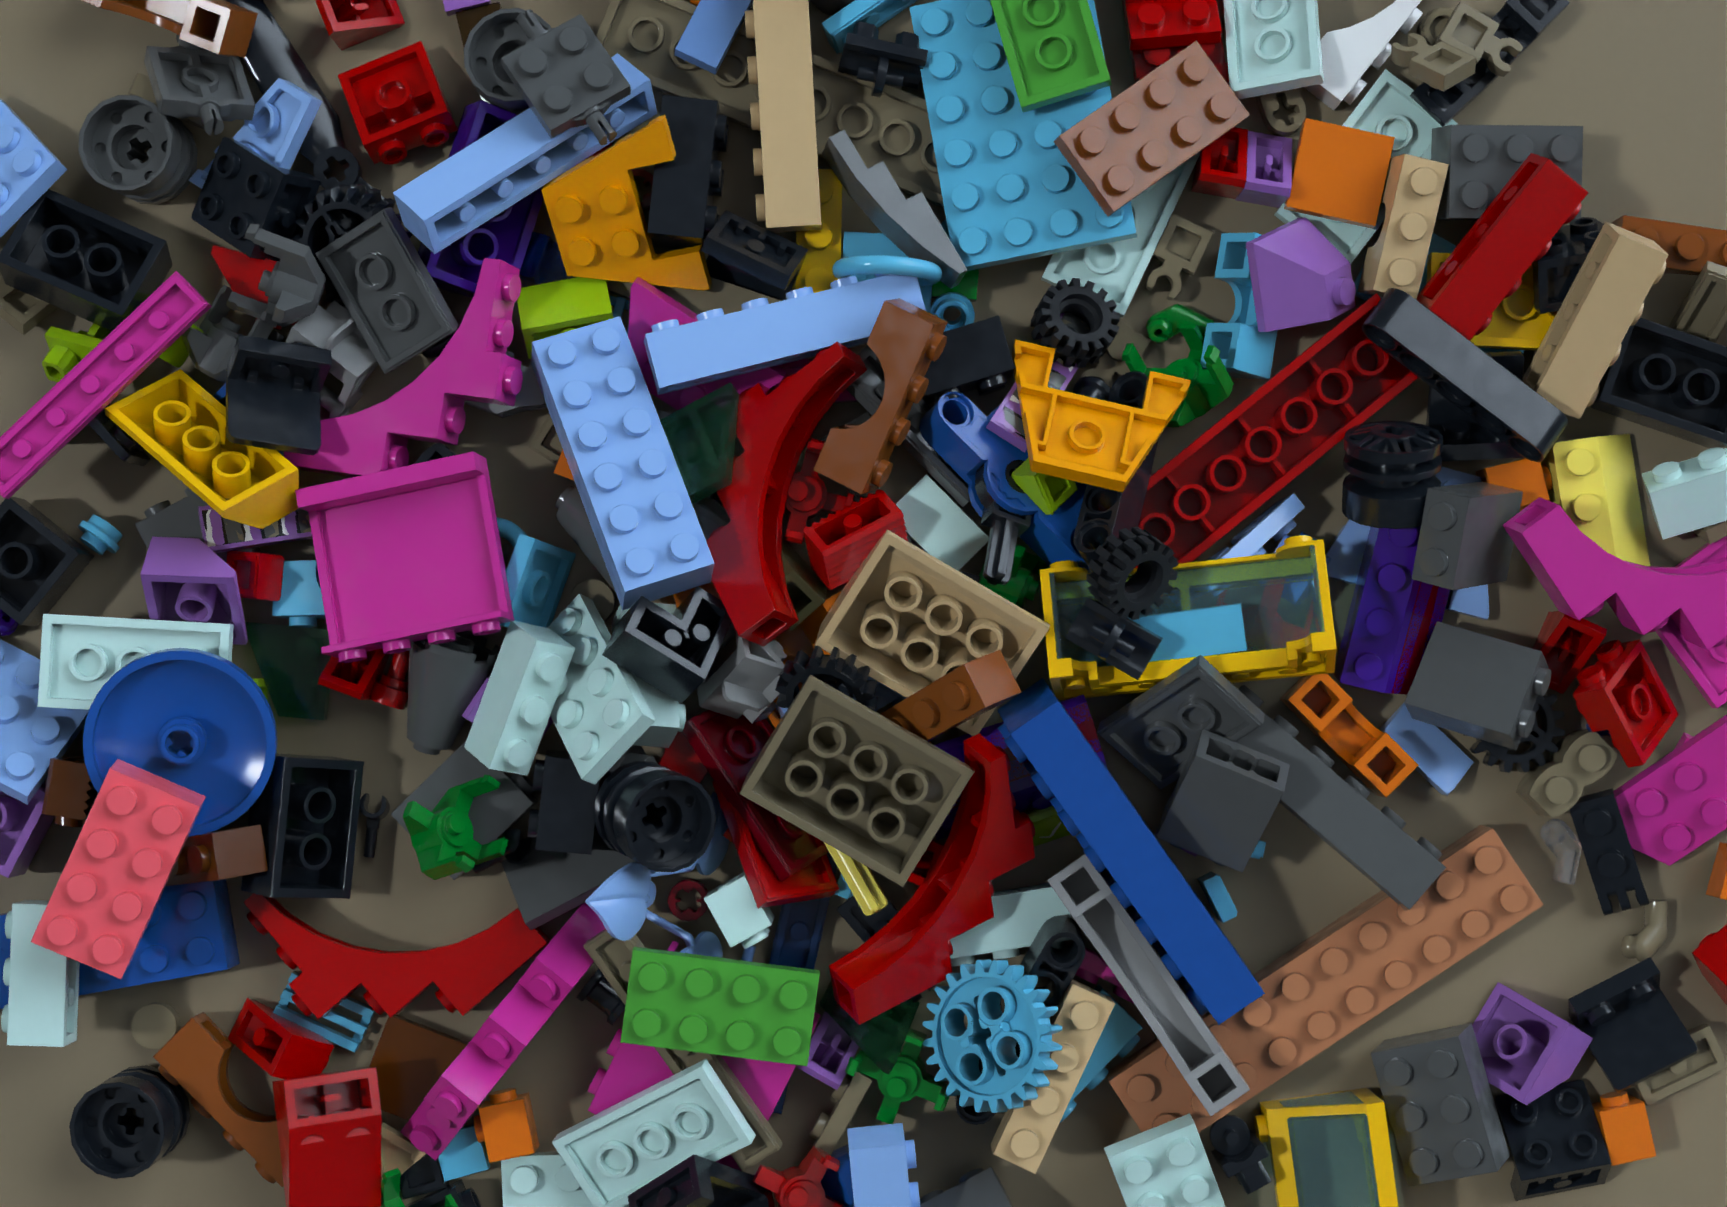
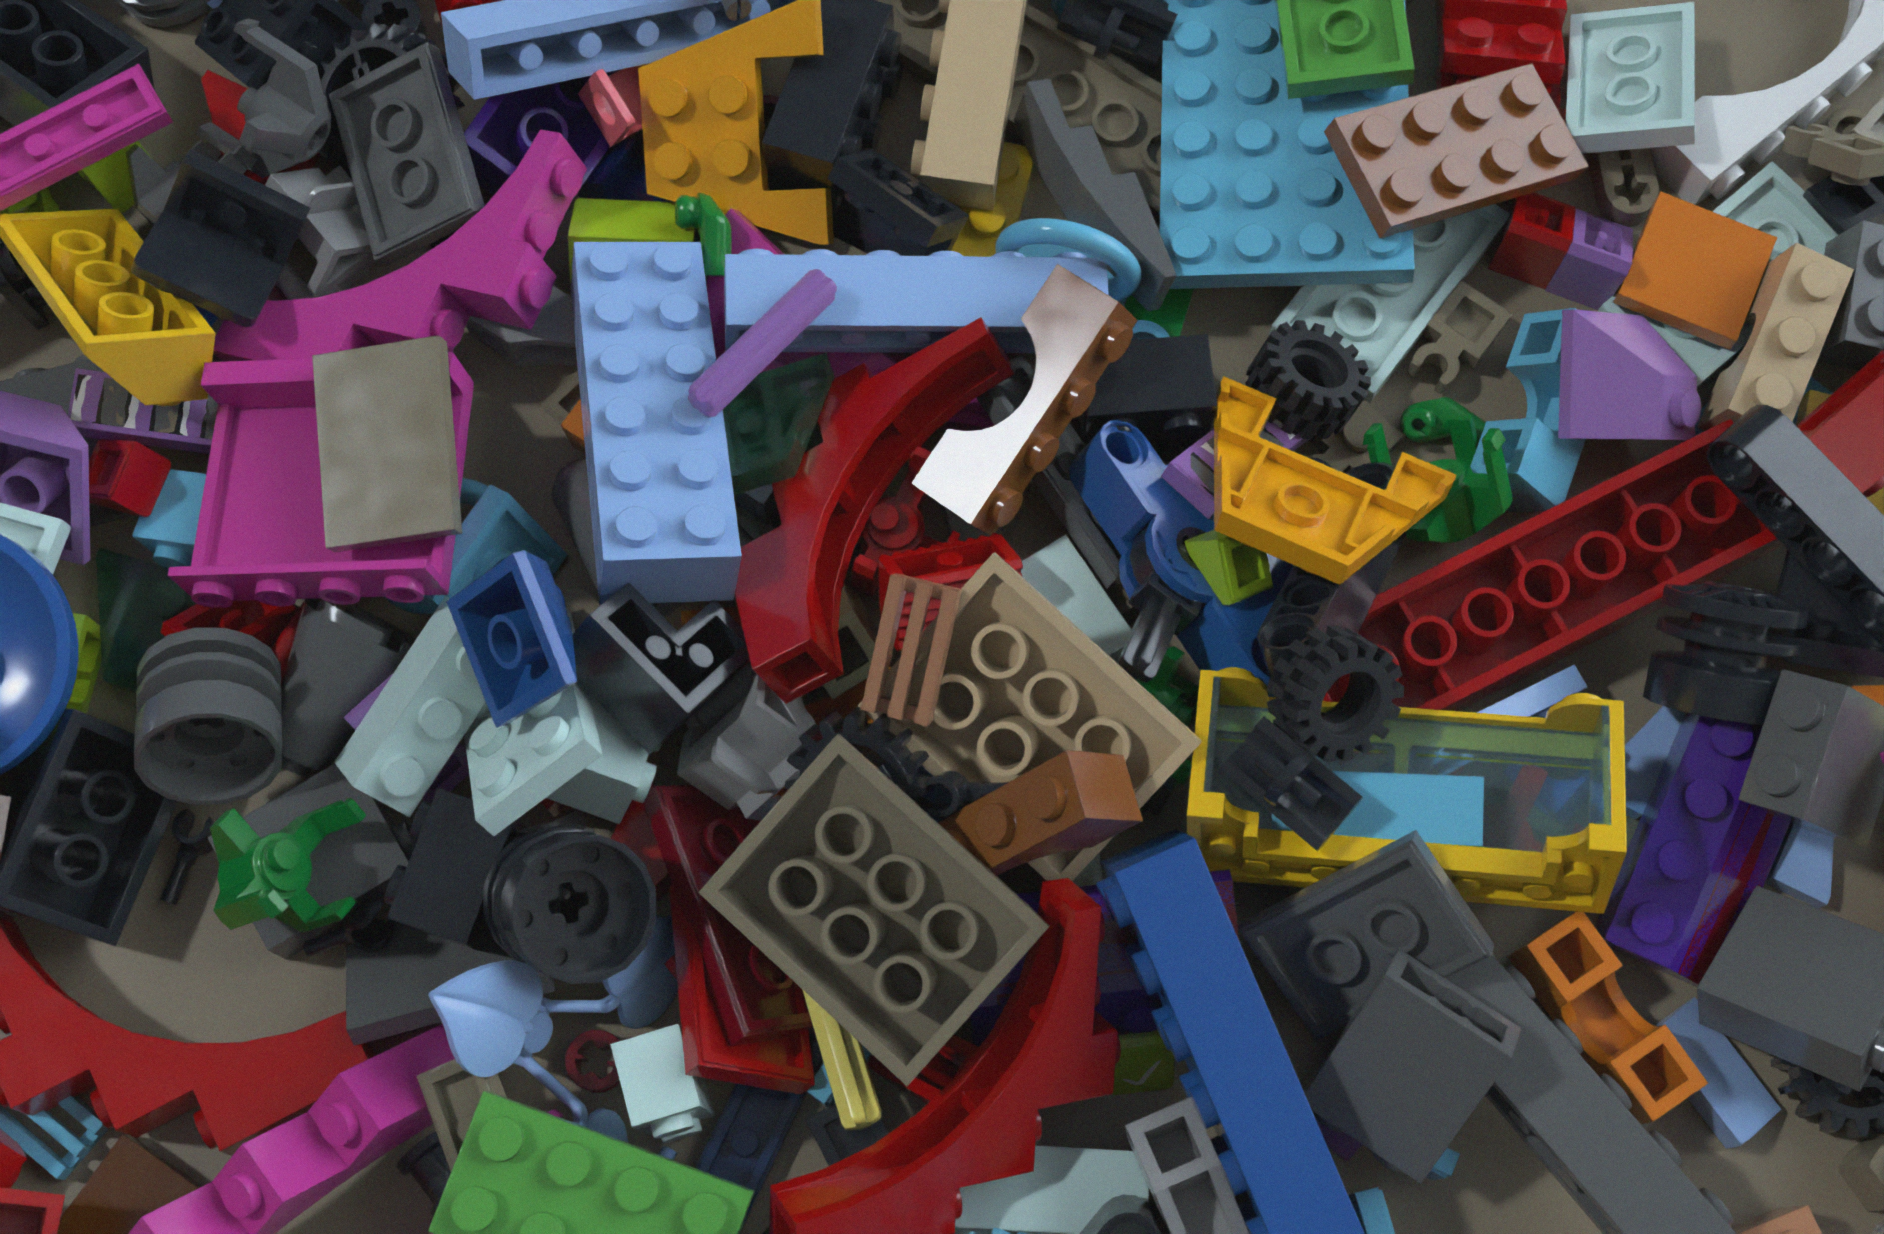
camera: 15 degrees right, 15 degrees down
(373, 738) = (208, 716): none -> dark grey wheel
(446, 529) = (386, 444): none -> dark tan tile
(530, 218) = (614, 103): none -> coral bracket
(578, 653) = (516, 635): none -> blue slope
(626, 301) = (712, 227): none -> green arm
(690, 400) = (762, 343): none -> medium lavender axle
(843, 641) = (897, 705): none -> nougat tile
(898, 688) = (961, 790): none -> black hand

